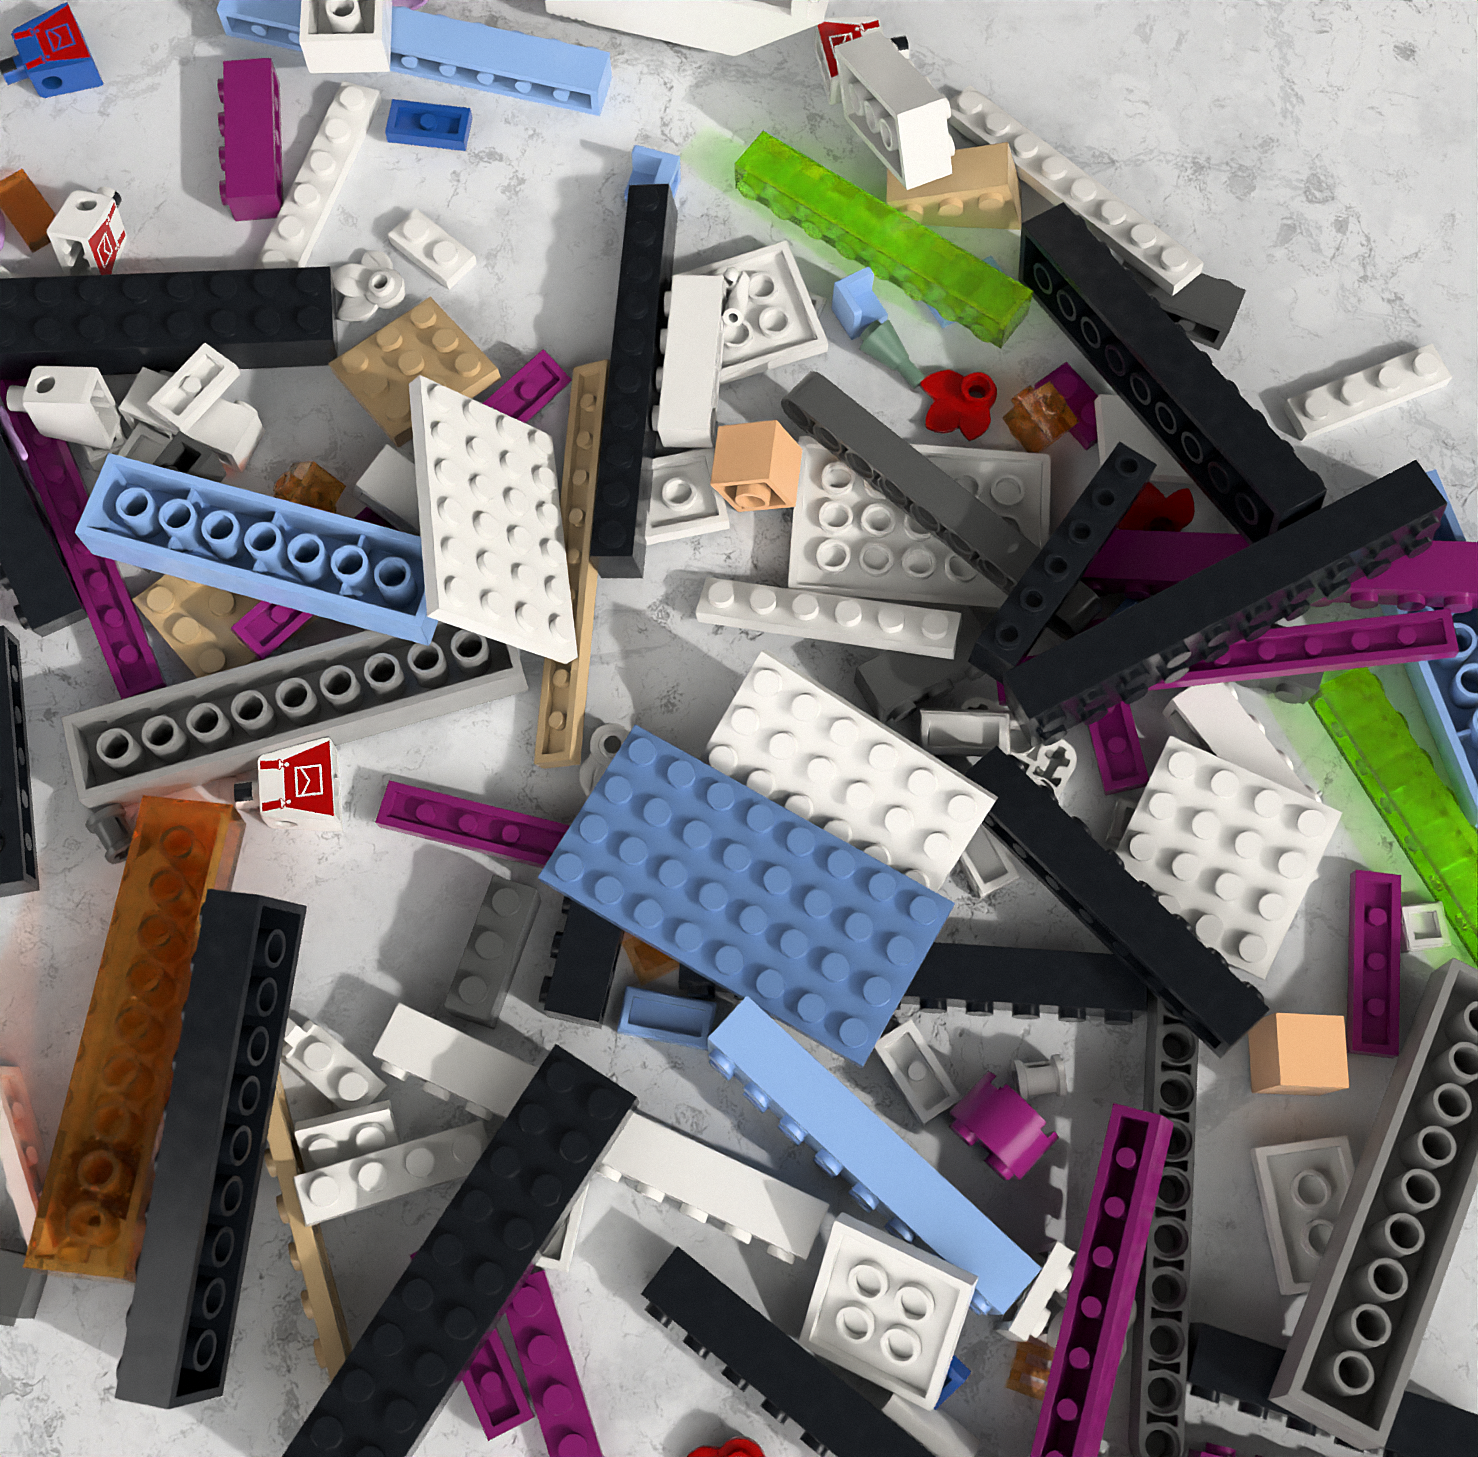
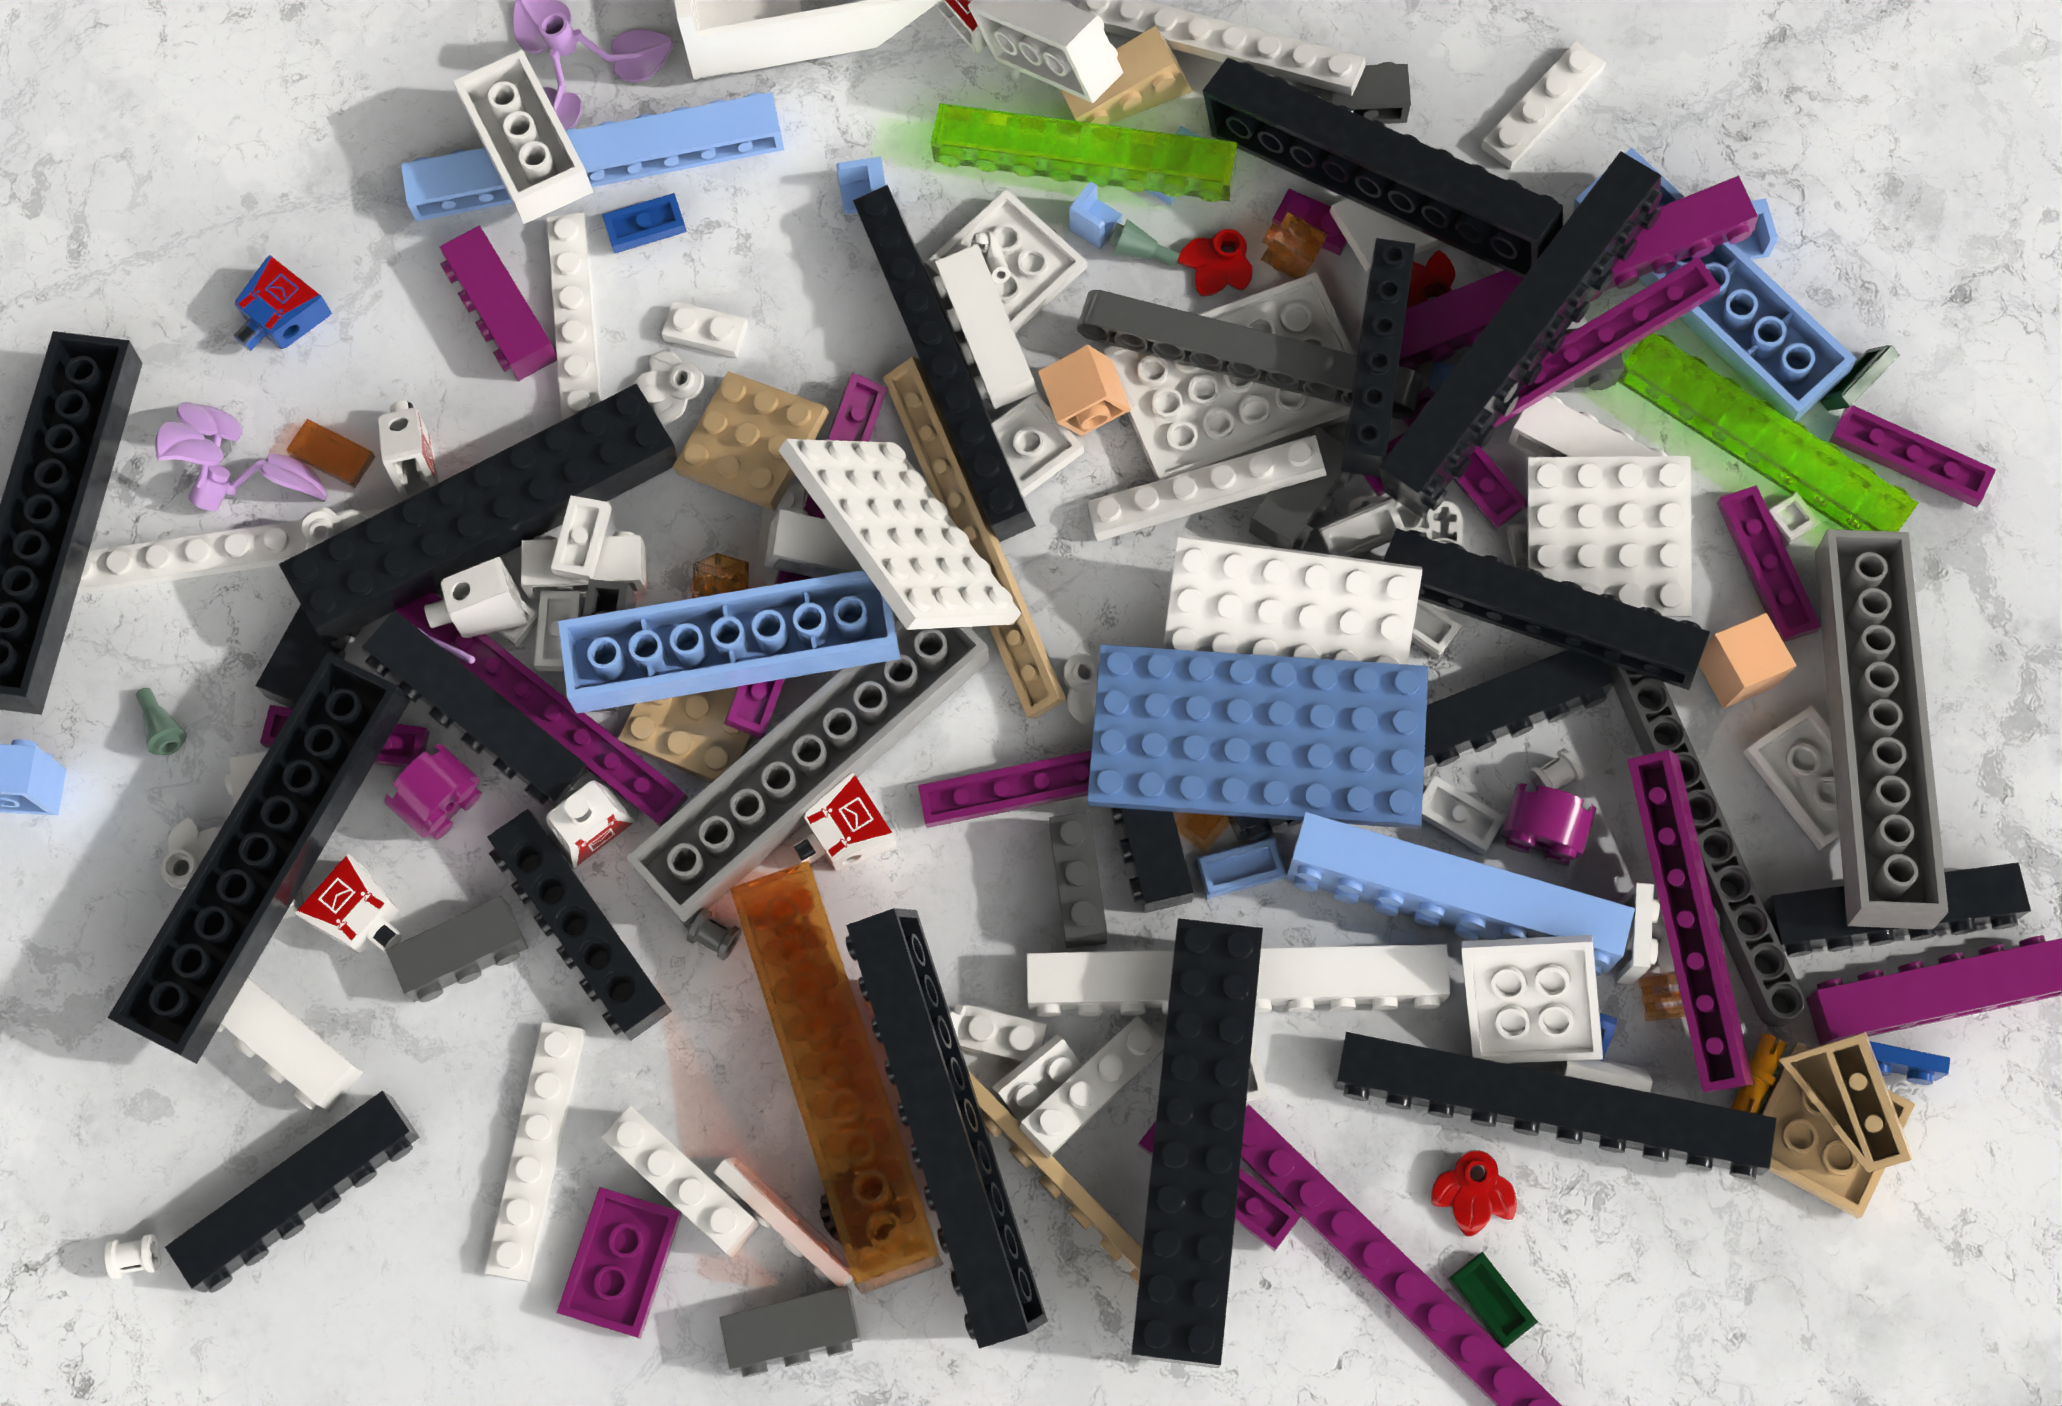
camera: 20 degrees left, 0 degrees up
(52, 665) = (587, 822): none -> white torso

